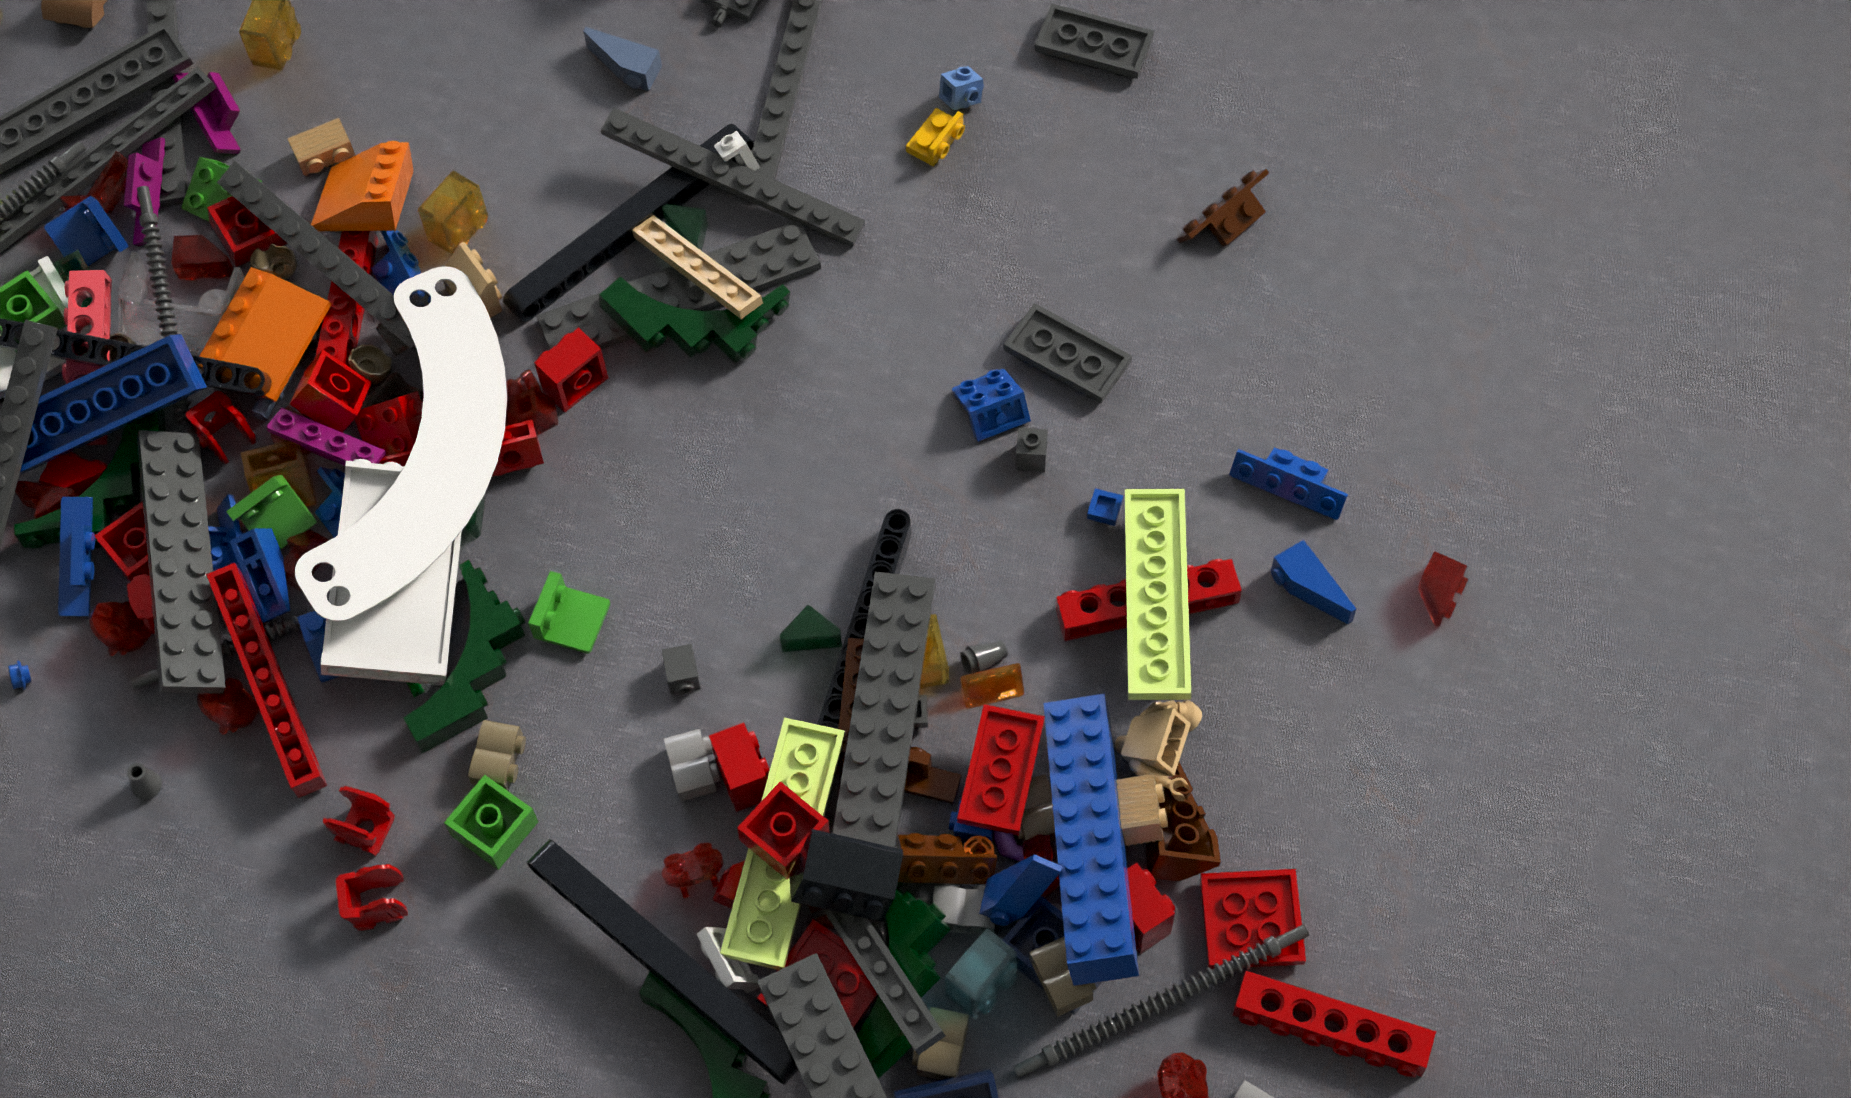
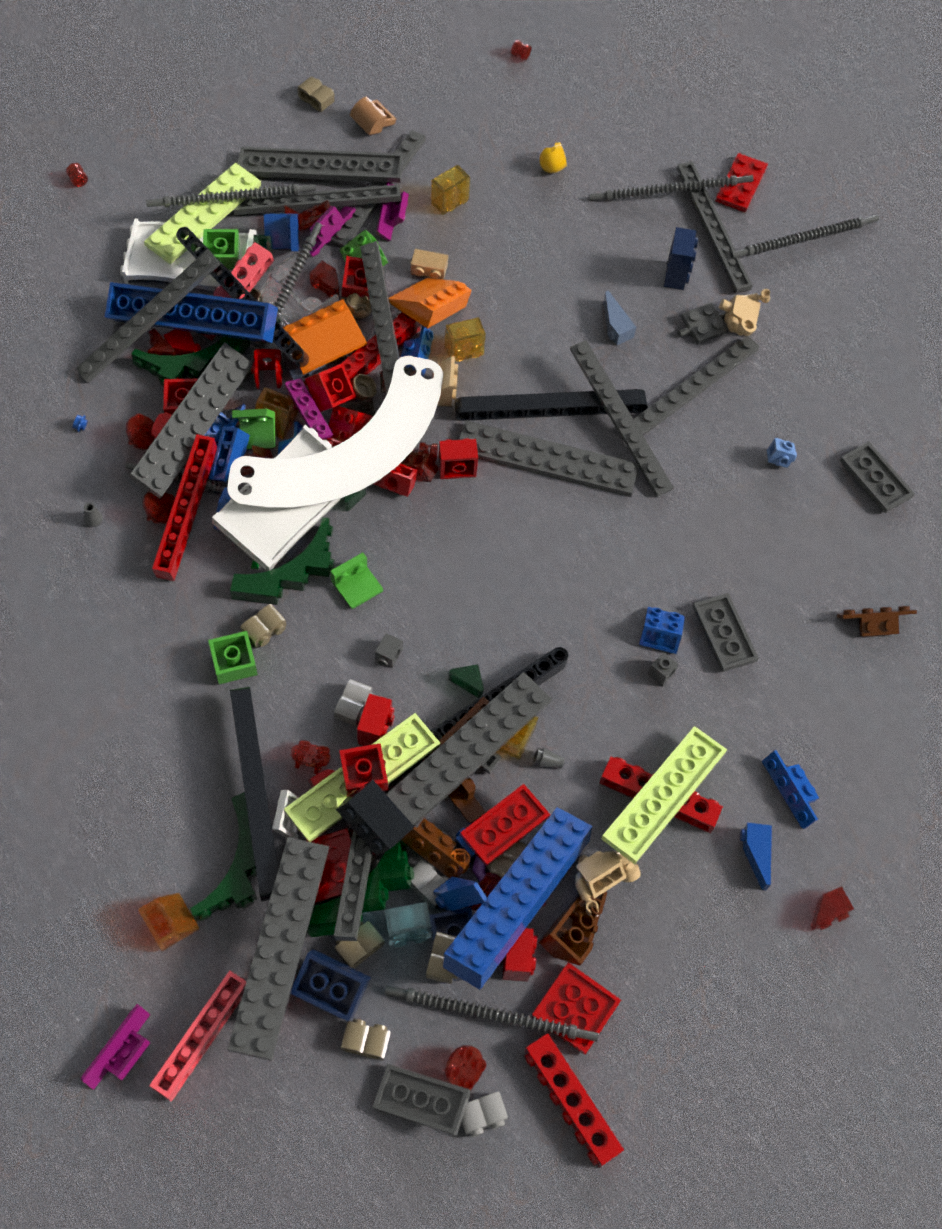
camera: 30 degrees right, 0 degrees up
(75, 556) = (149, 383): blue bracket -> none
(349, 900) = (144, 639): red piece -> none
(364, 807) = (181, 605): red piece -> none
(687, 222) = (579, 427): clear green slope -> none
(692, 330) = (536, 482): dark green arch -> none
(697, 267) = (564, 450): tan plate -> none
(736, 147) = (633, 401): white bracket -> none
(936, 136) = (748, 469): yellow bracket -> none
(992, 685) = (540, 778): clear orange slope -> none
(1105, 507) = (678, 728): blue plate -> none
(1140, 809) = (559, 902): tan brick -> none

